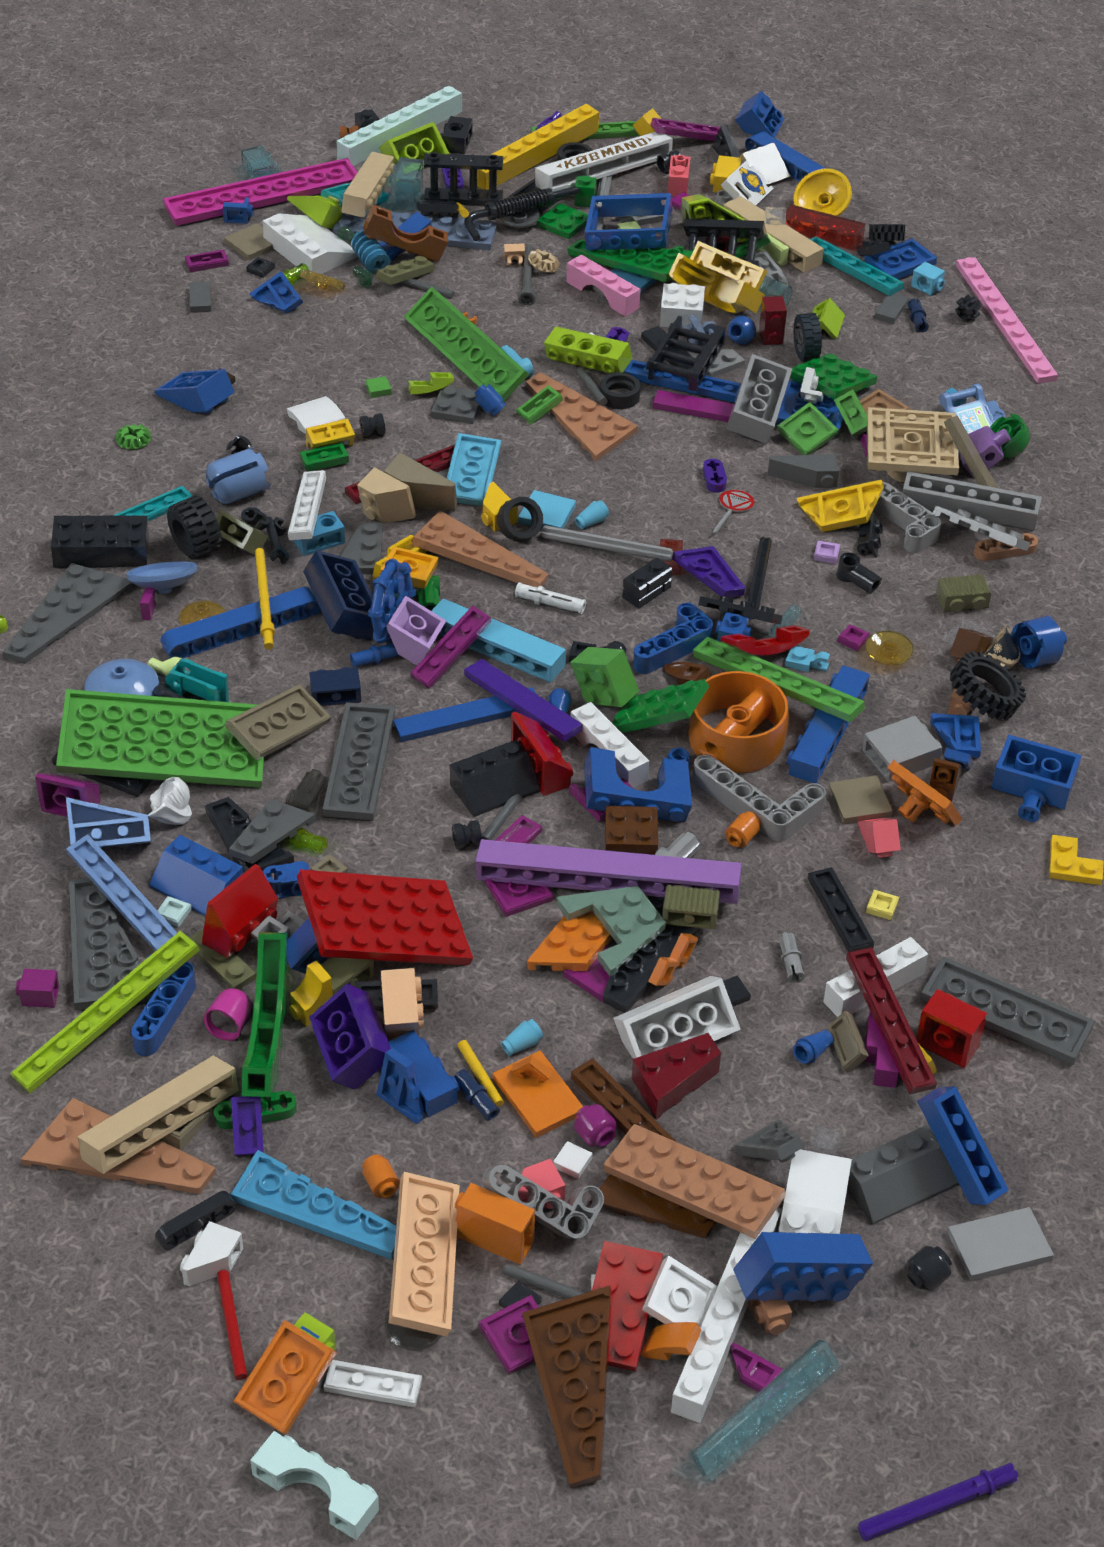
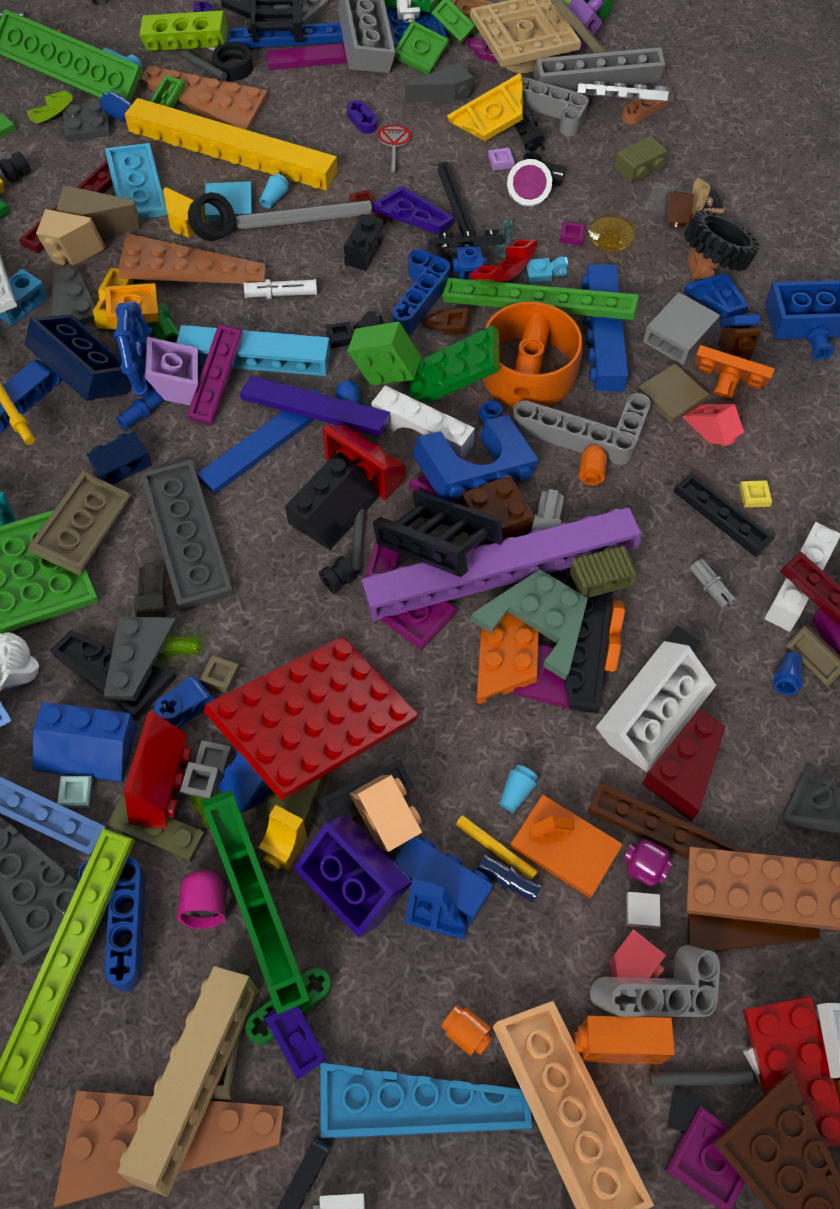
camera: 25 degrees left, 15 degrees up
(558, 839) = (432, 550): none -> black fence
(577, 463) = (232, 144): none -> yellow brick
(835, 580) = (529, 182): none -> tile
(1039, 641) = (736, 182): blue brick -> none

